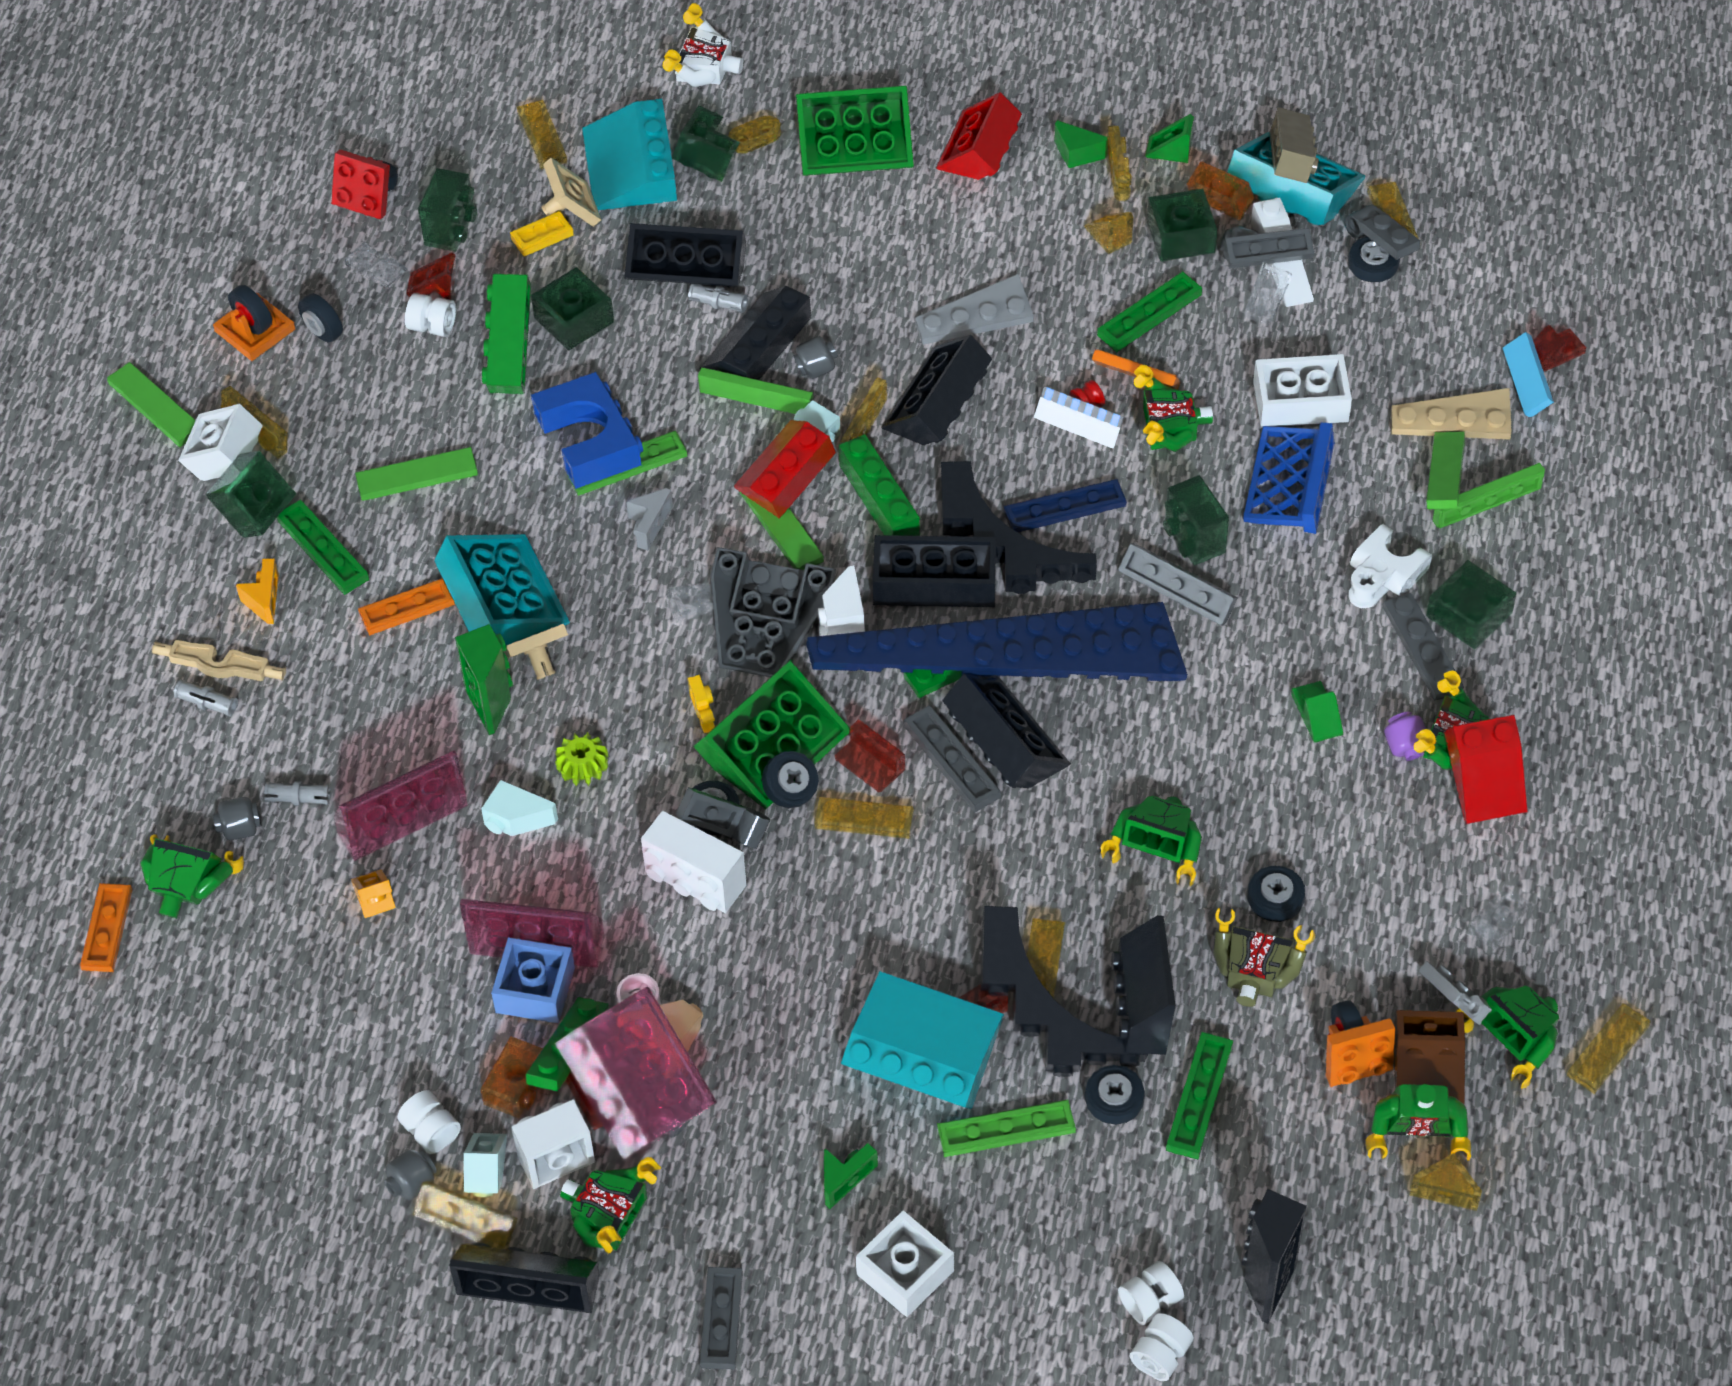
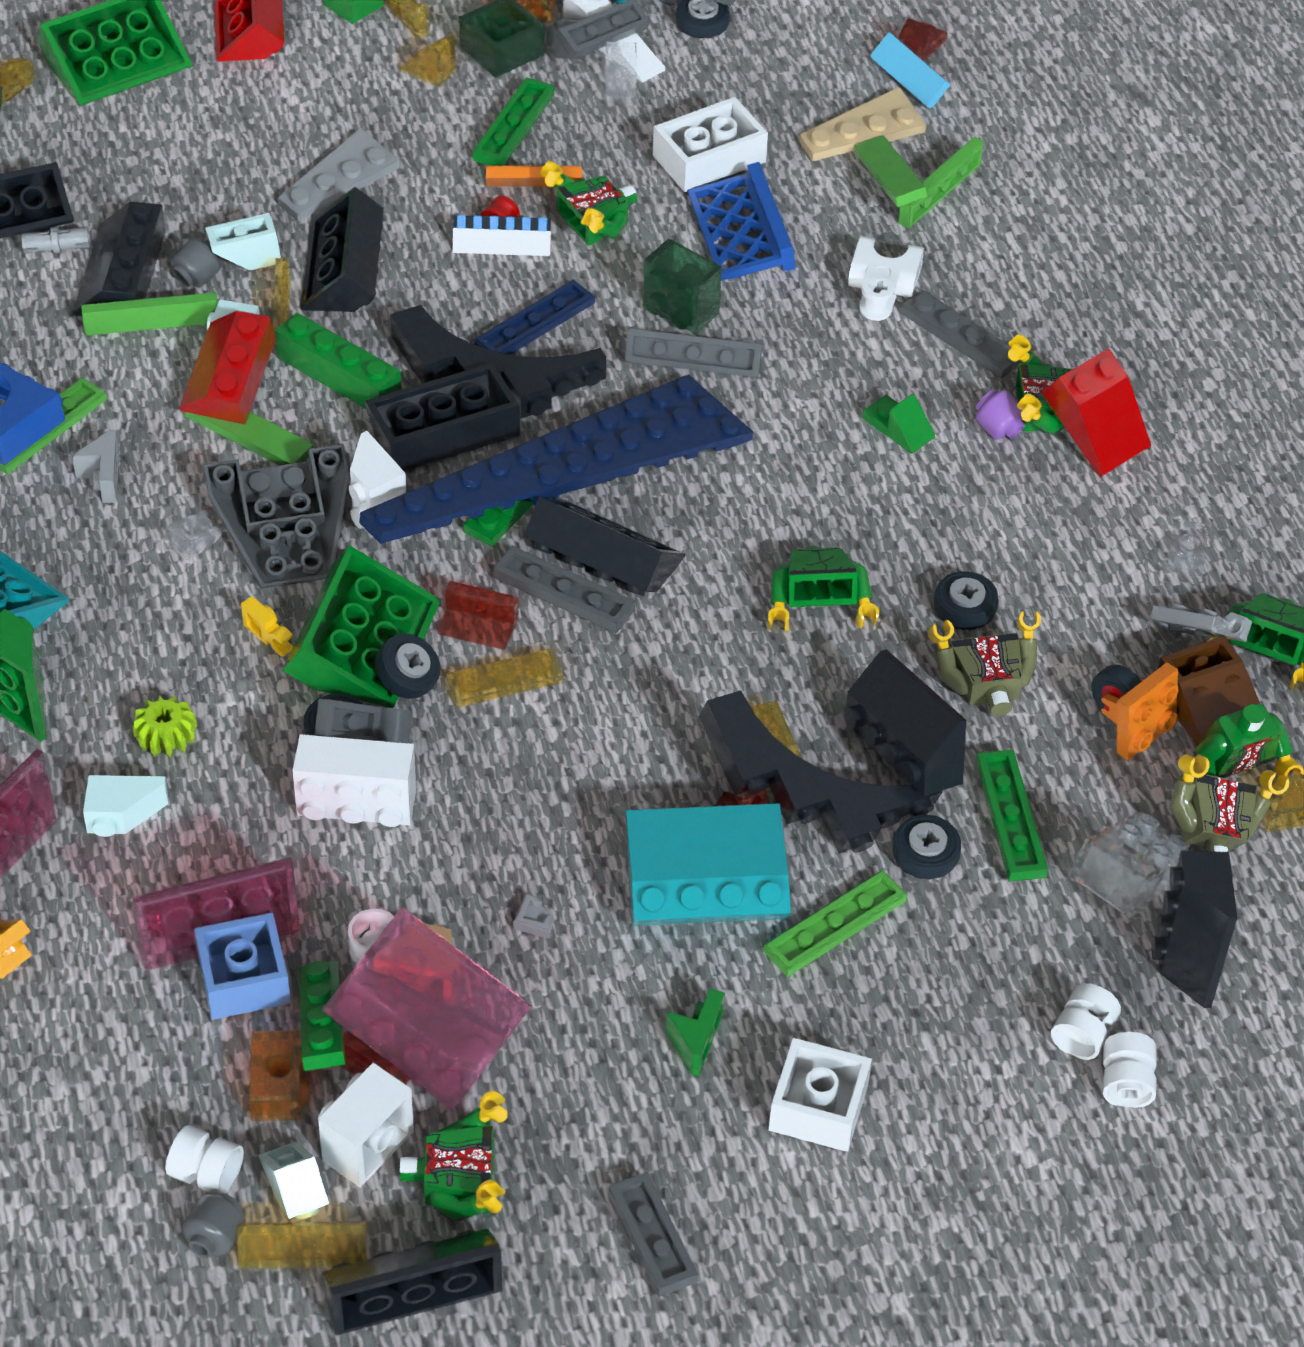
camera: 30 degrees left, 5 degrees down
(535, 648) = (51, 632): tan tile -> none
(775, 1027) = (533, 917): none -> light grey tile
(862, 353) = (246, 241): none -> light aqua slope
(1283, 1164) = (1129, 862): none -> clear slope
(1366, 1162) = (1217, 809): none -> torso
(1471, 604) = (987, 279): clear green brick -> none

